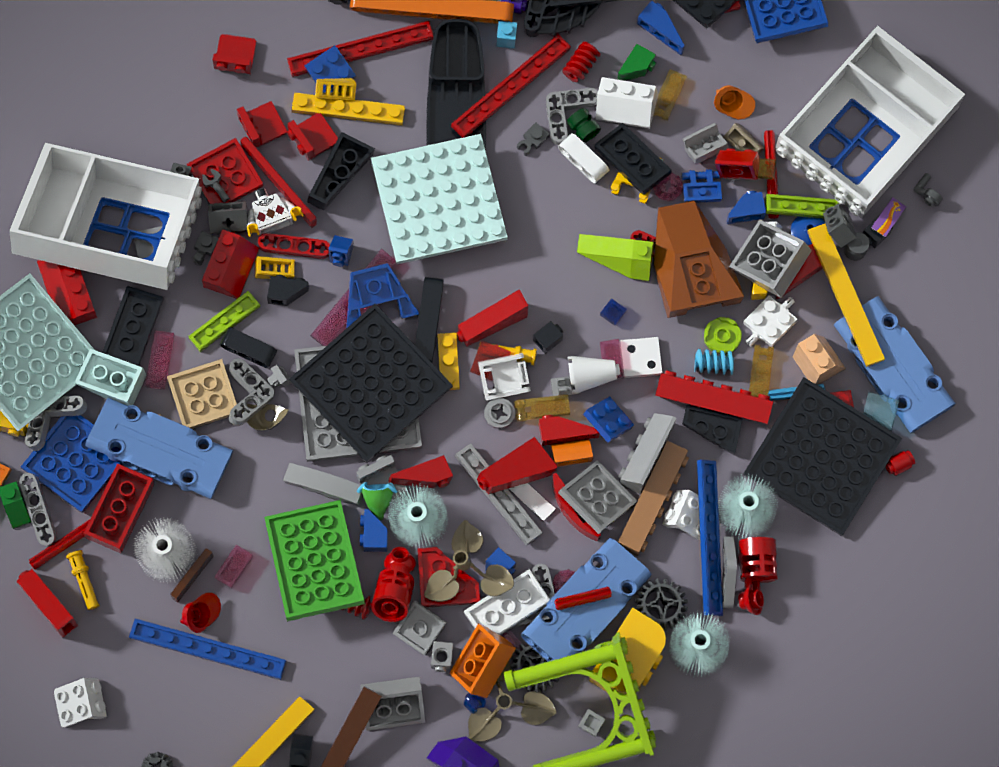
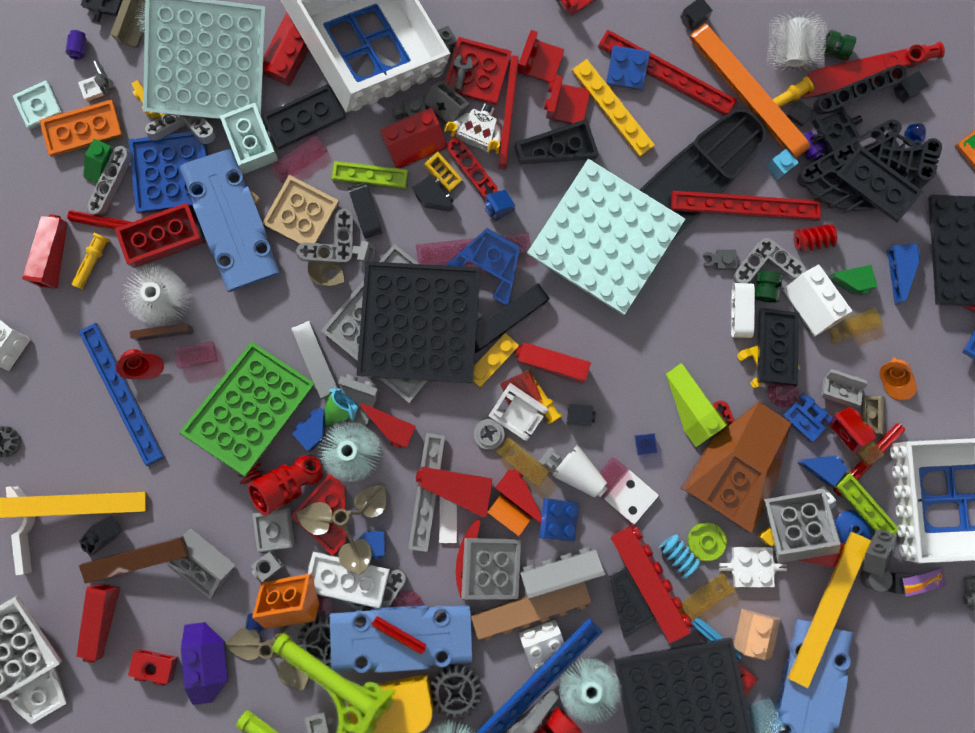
camera: 50 degrees right, 10 degrees up
(345, 83) = (617, 93): yellow slope -> none

